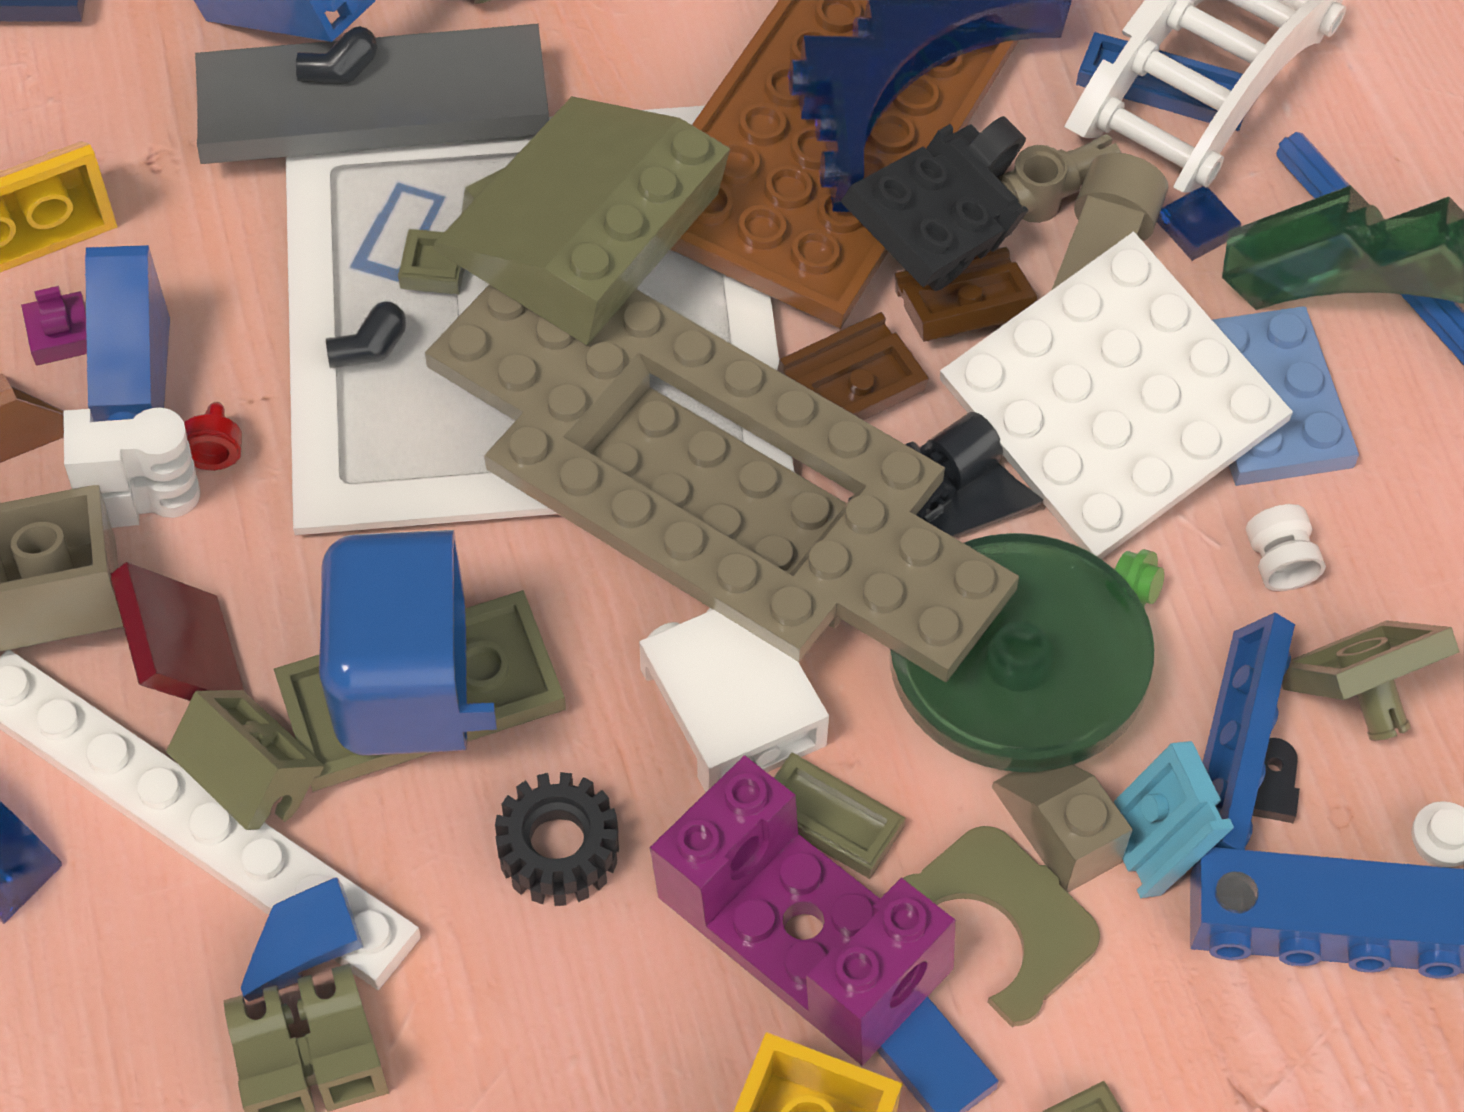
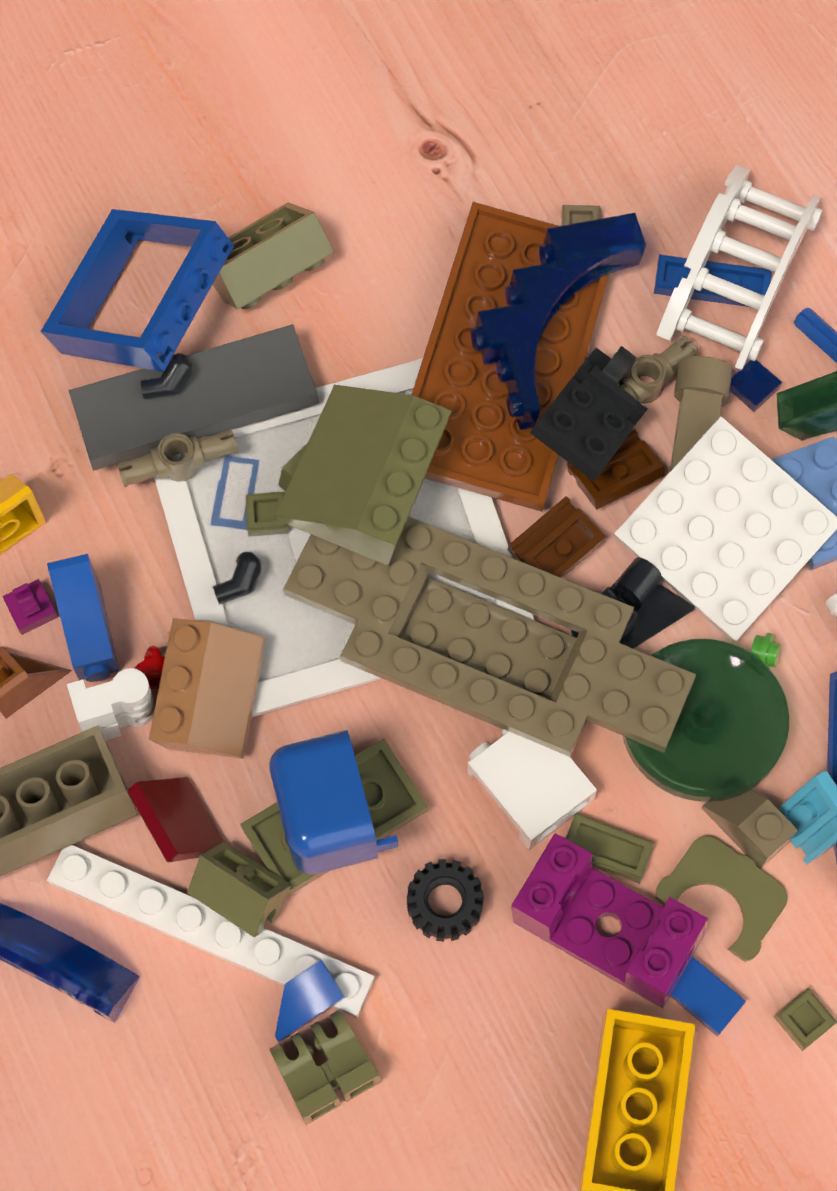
camera: 10 degrees left, 10 degrees up
(275, 471) = (207, 689): none -> medium nougat slope
(324, 162) = (159, 463): none -> dark tan pin

